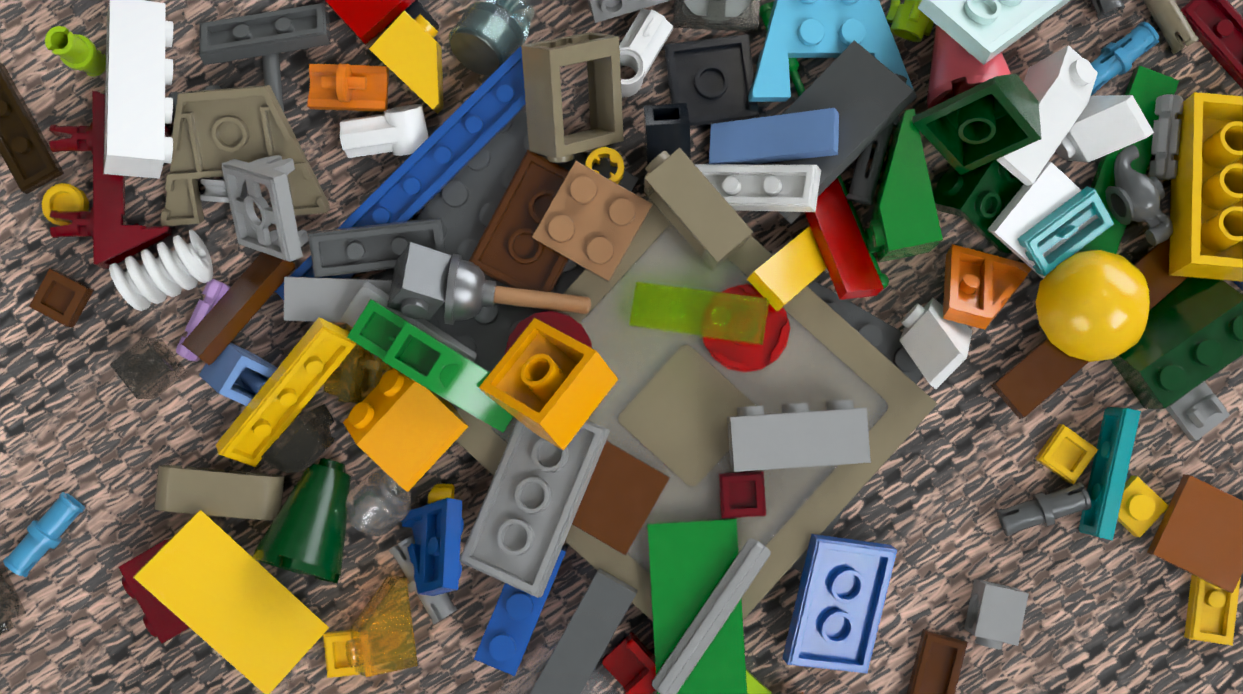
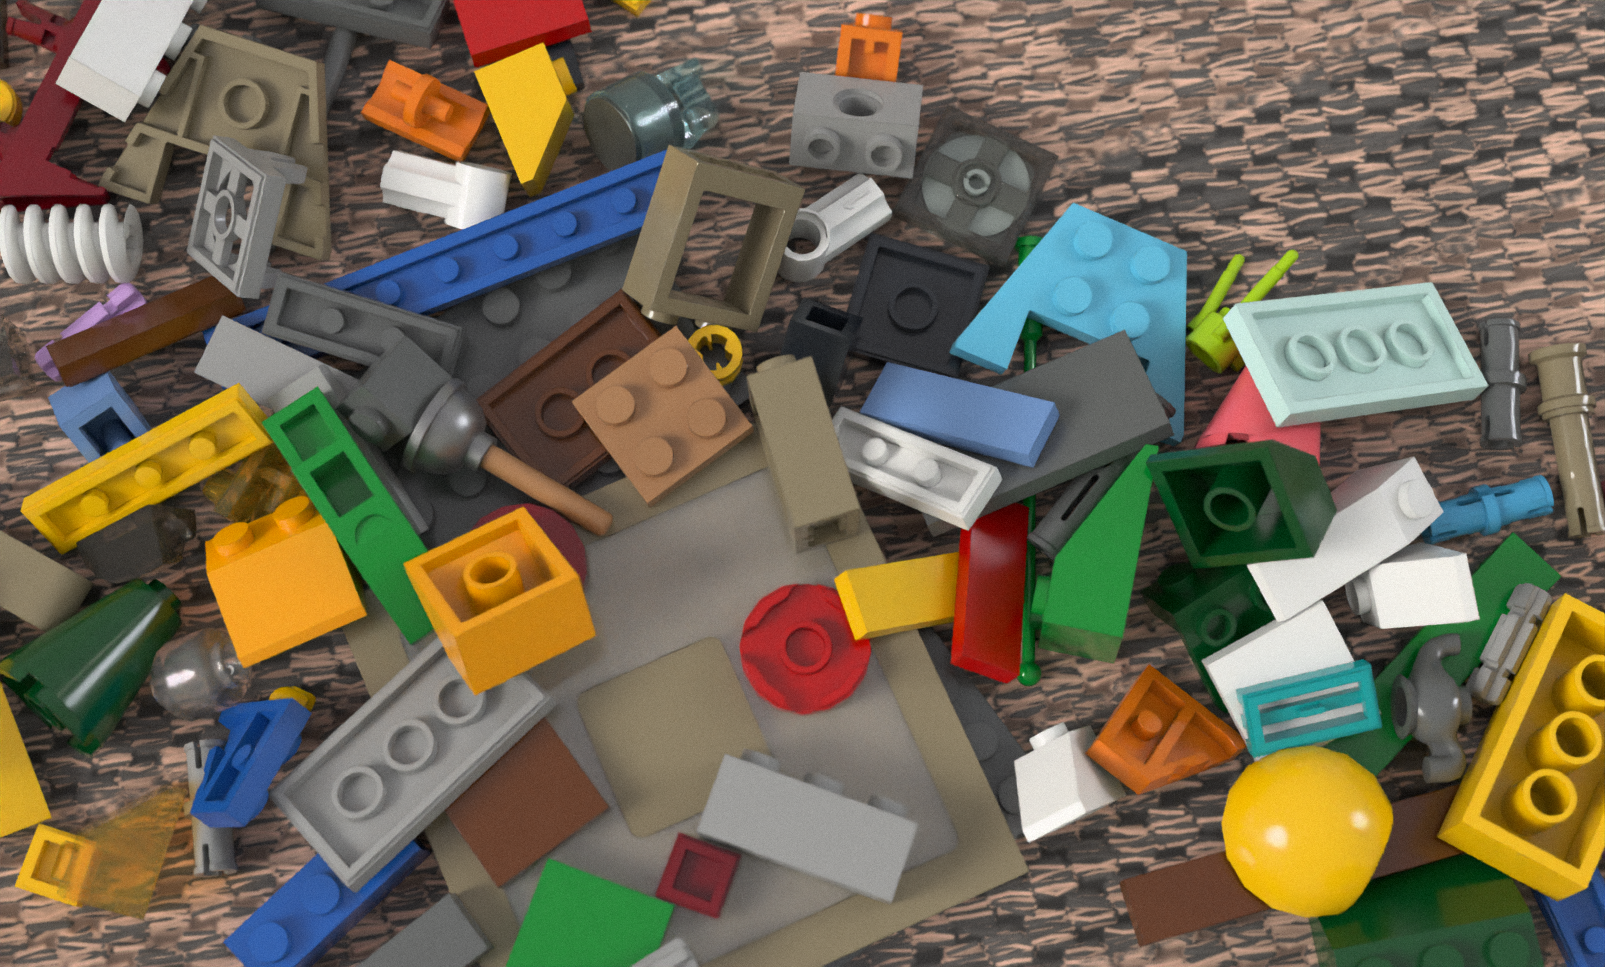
camera: 20 degrees right, 10 degrees down
(214, 190) = (188, 169): light grey bush -> none
(699, 313) = (750, 597): clear neon green tile -> none

